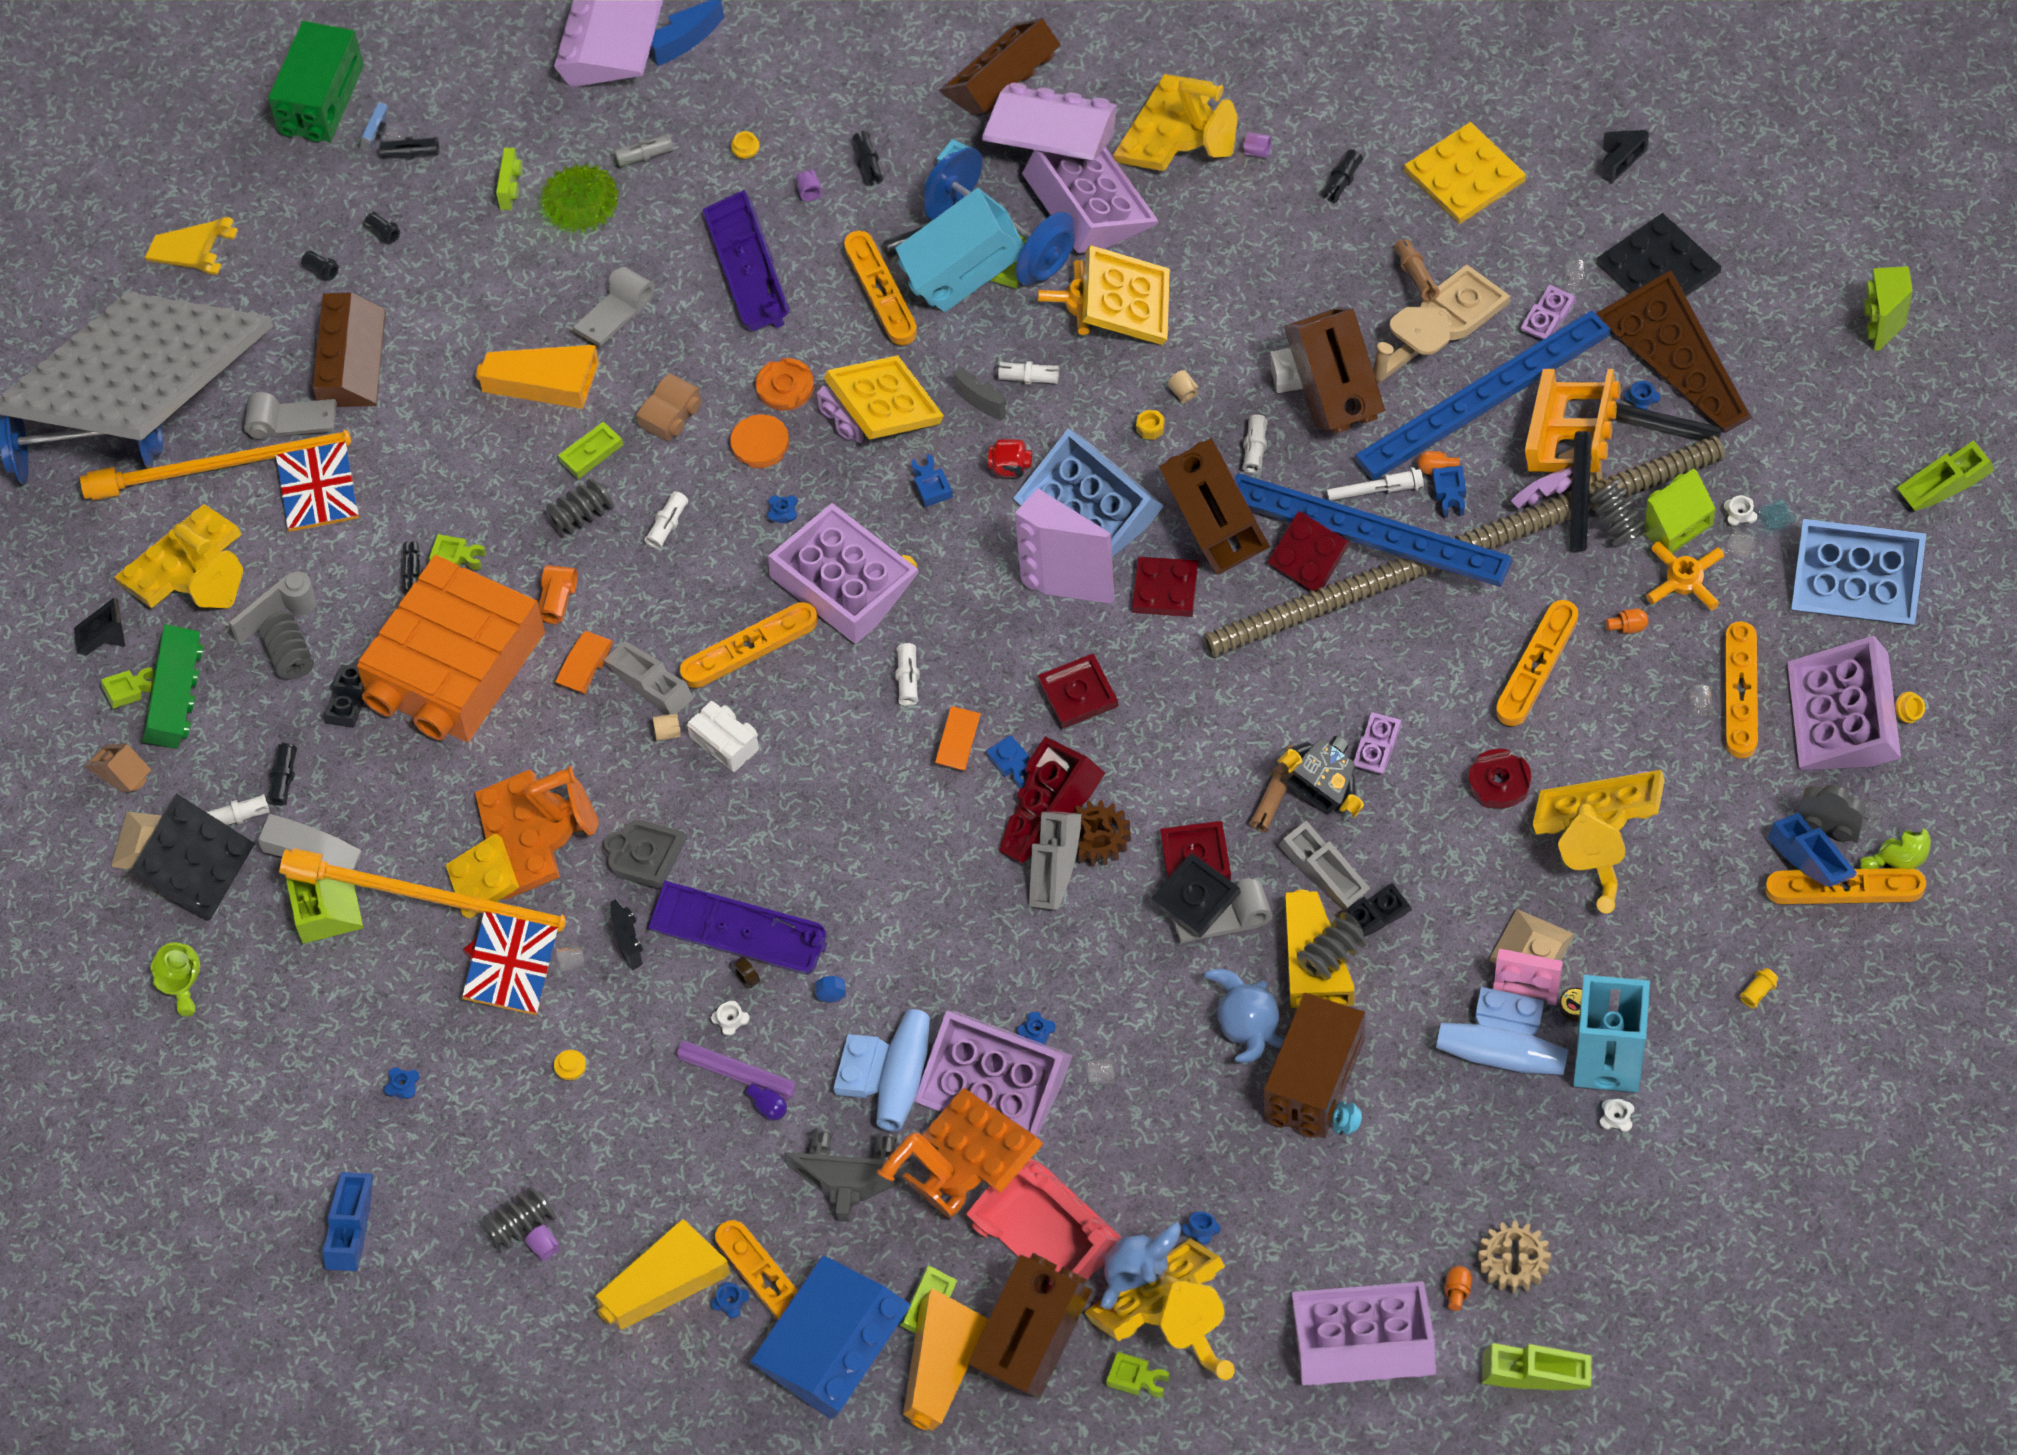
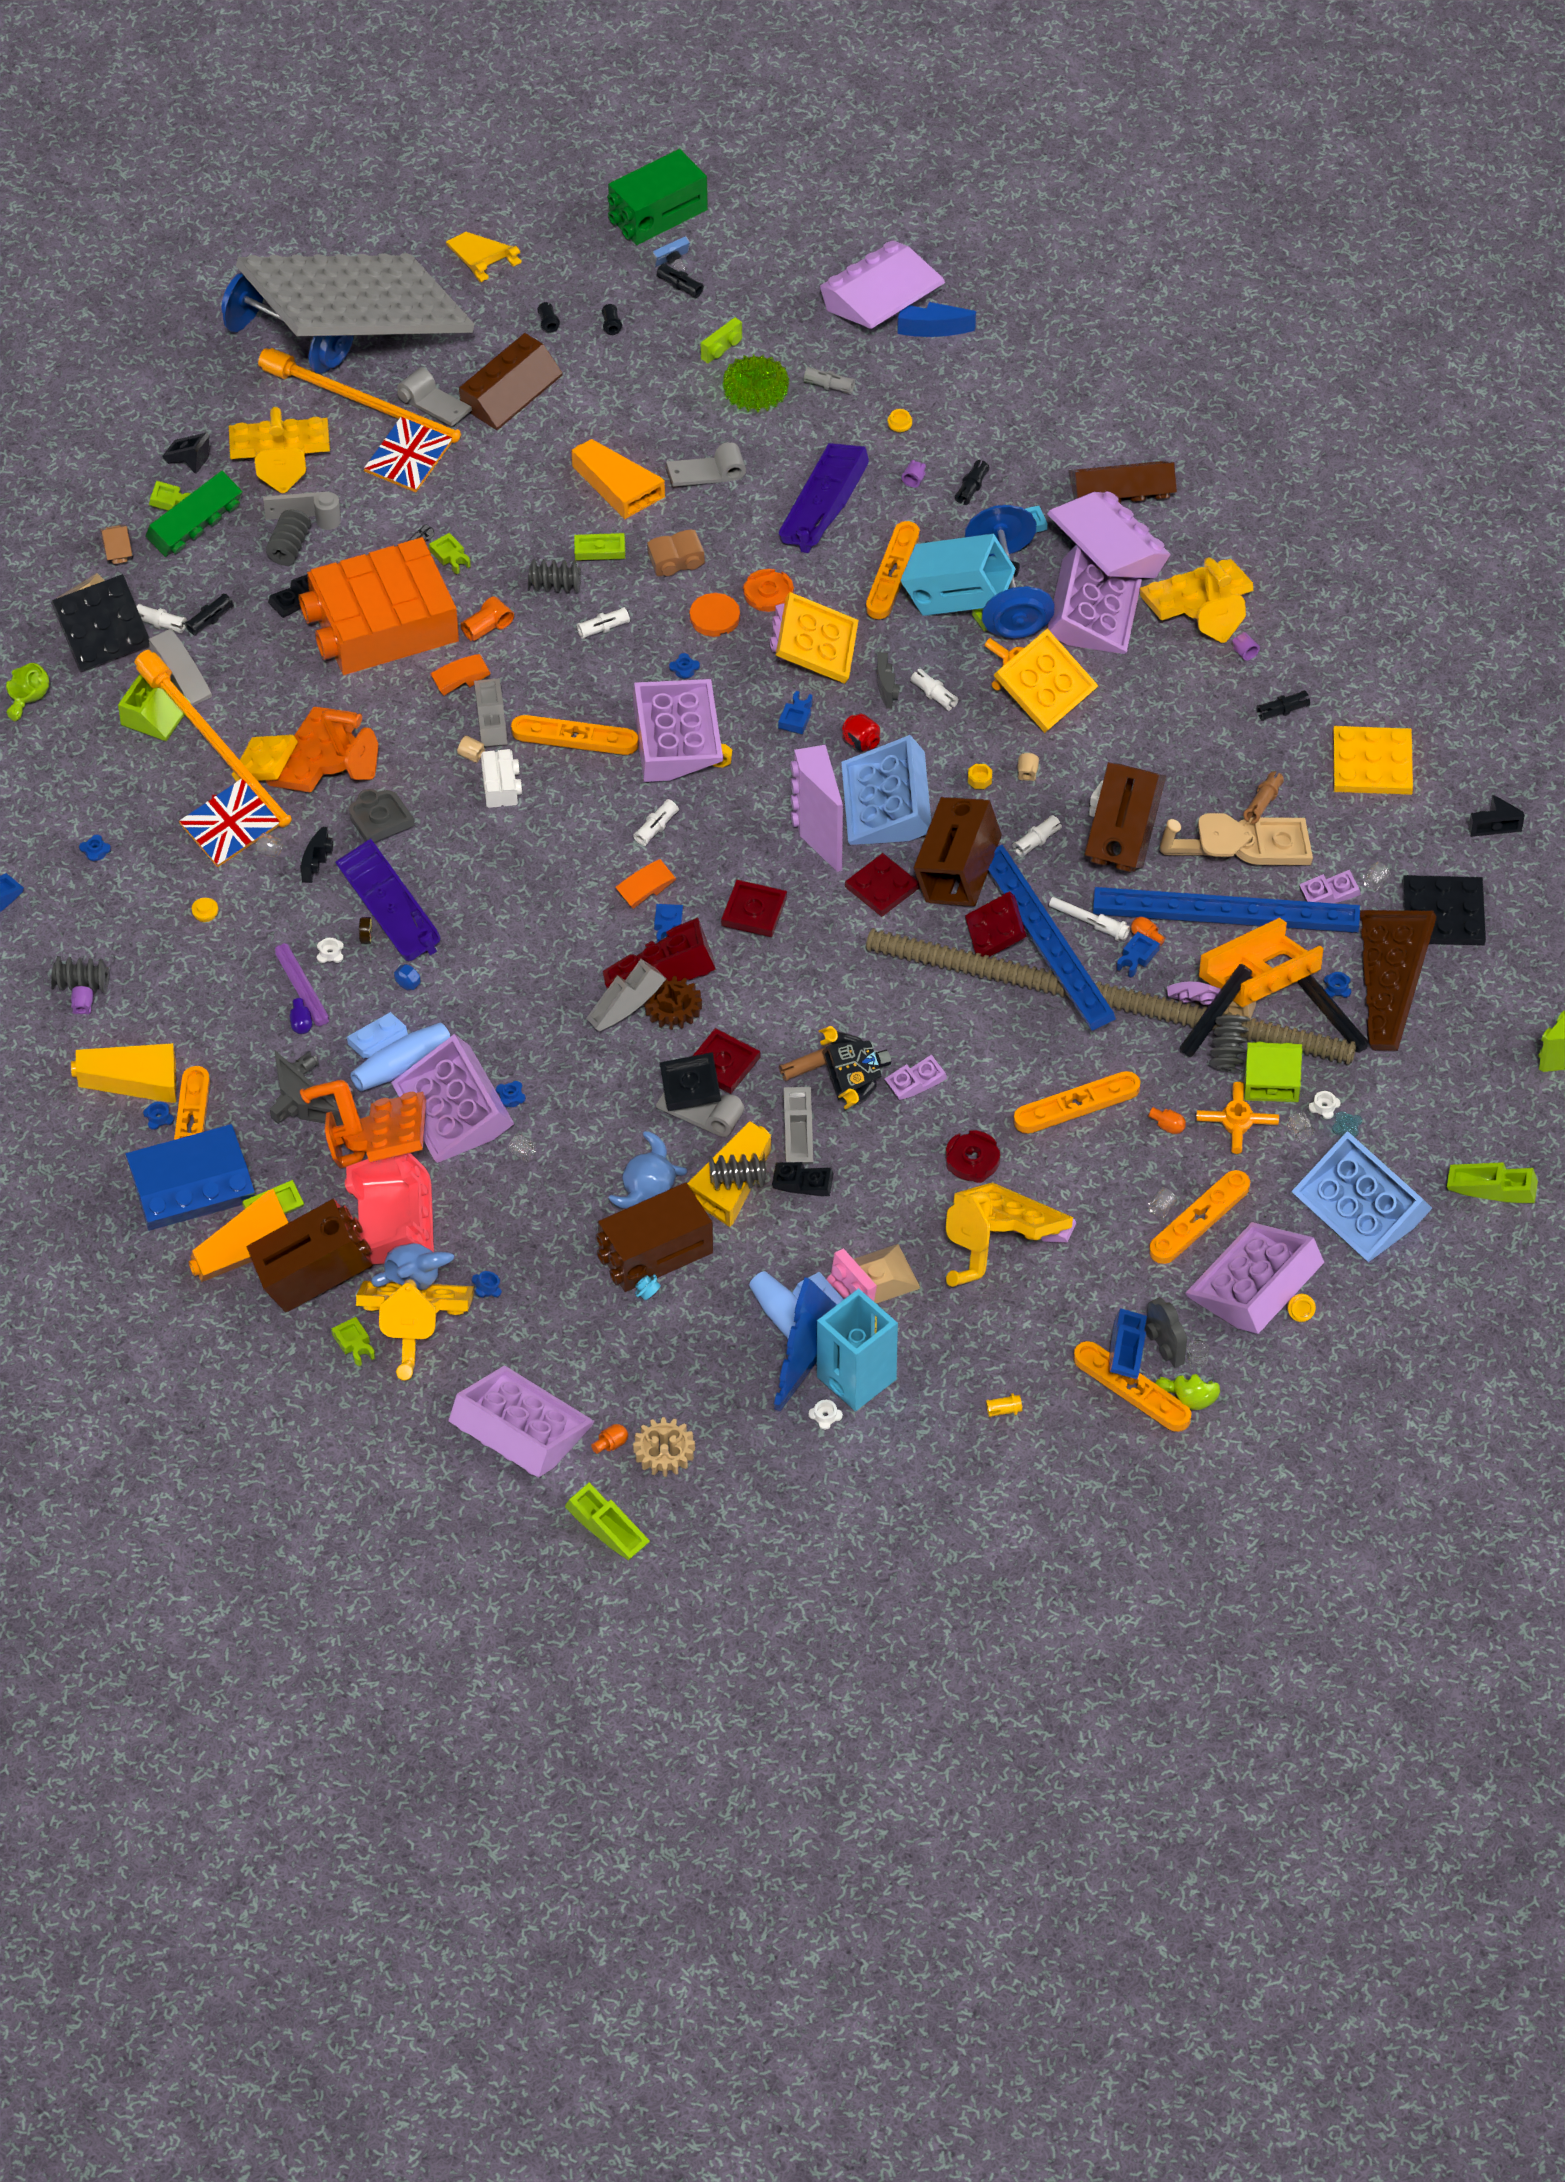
camera: 35 degrees right, 5 degrees down
(1552, 1053) = (802, 1340): none -> blue slope

